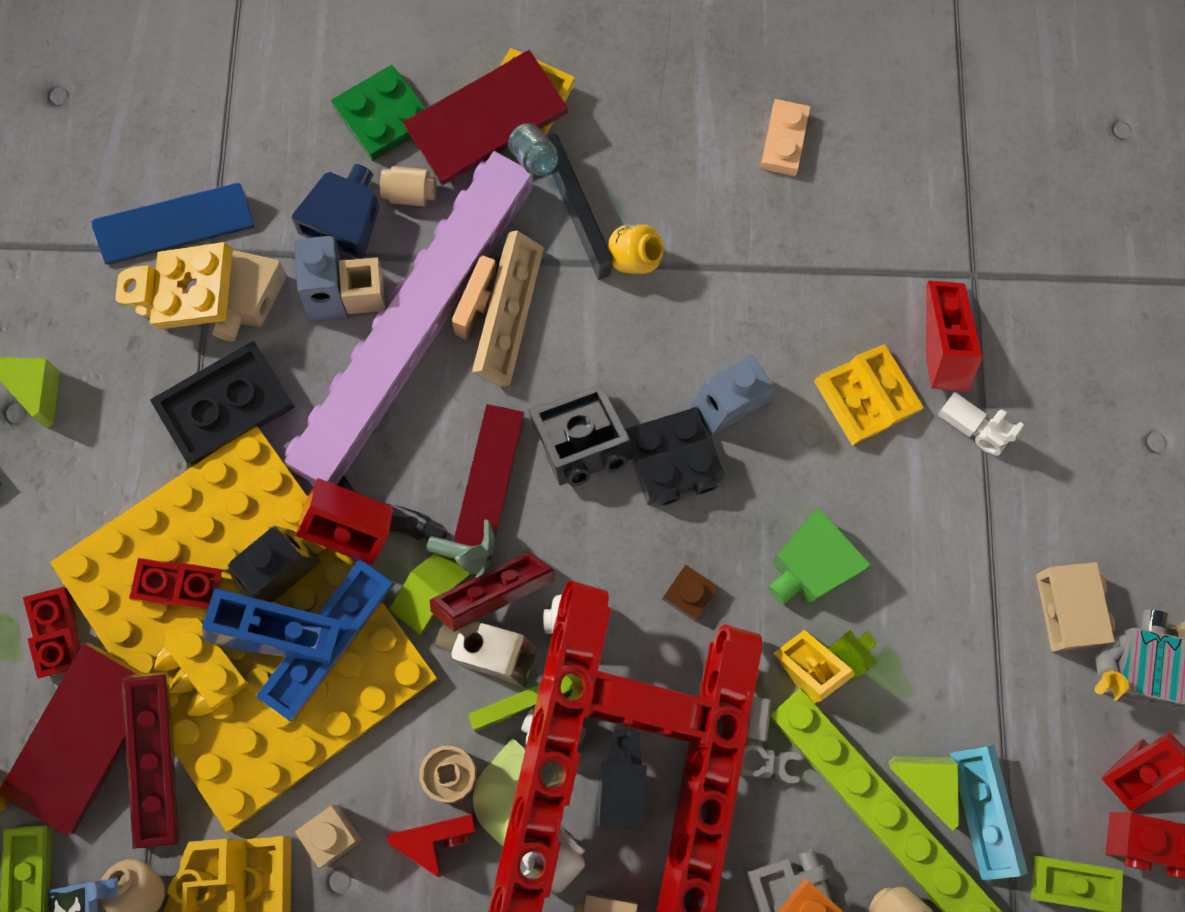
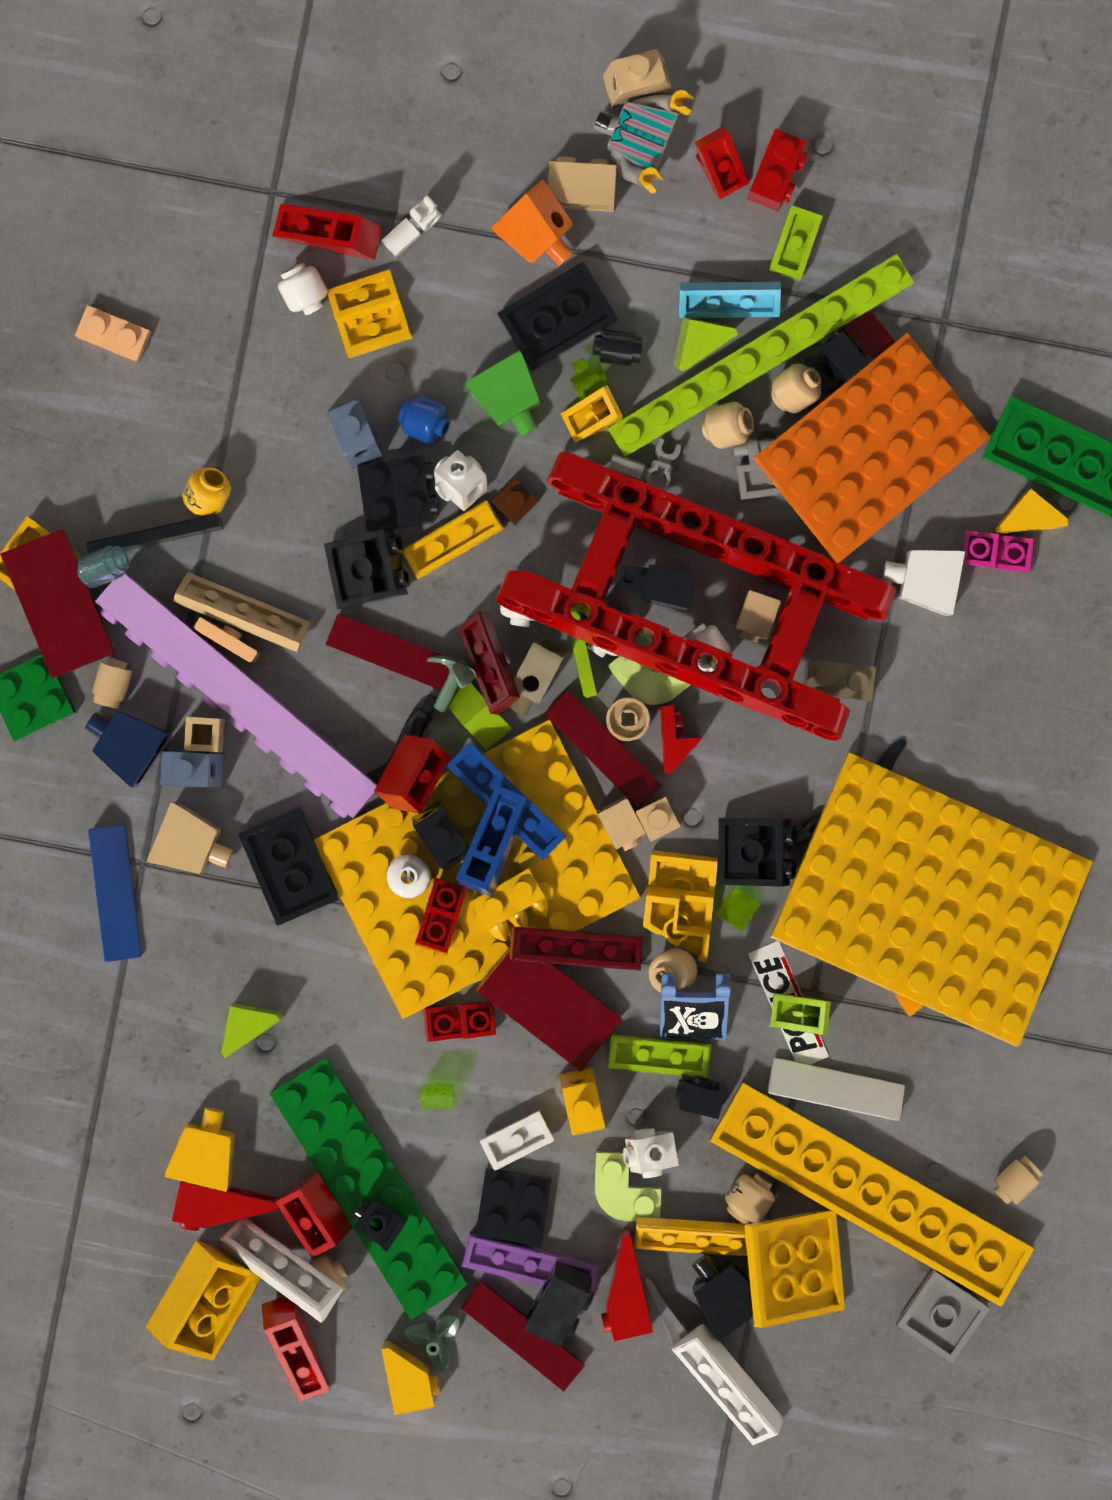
camera: 70 degrees left, 15 degrees up
(163, 292) = (180, 902): yellow plate -> none
(231, 538) = (421, 873): none -> white head
(317, 789) = (621, 824): none -> tan brick
(403, 755) = (603, 749): none -> dark red tile
(632, 528) = (452, 539): none -> yellow tile
(703, 522) = (460, 479): none -> white brick
(765, 470) = (424, 418): none -> blue head
(836, 838) = (728, 425): none -> tan head
(880, 317) = (302, 288): none -> white head
(898, 683) = (617, 347): none -> black brick
(917, 606) = (557, 316): none -> black plate
(1019, 559) = (536, 226): none -> orange torso

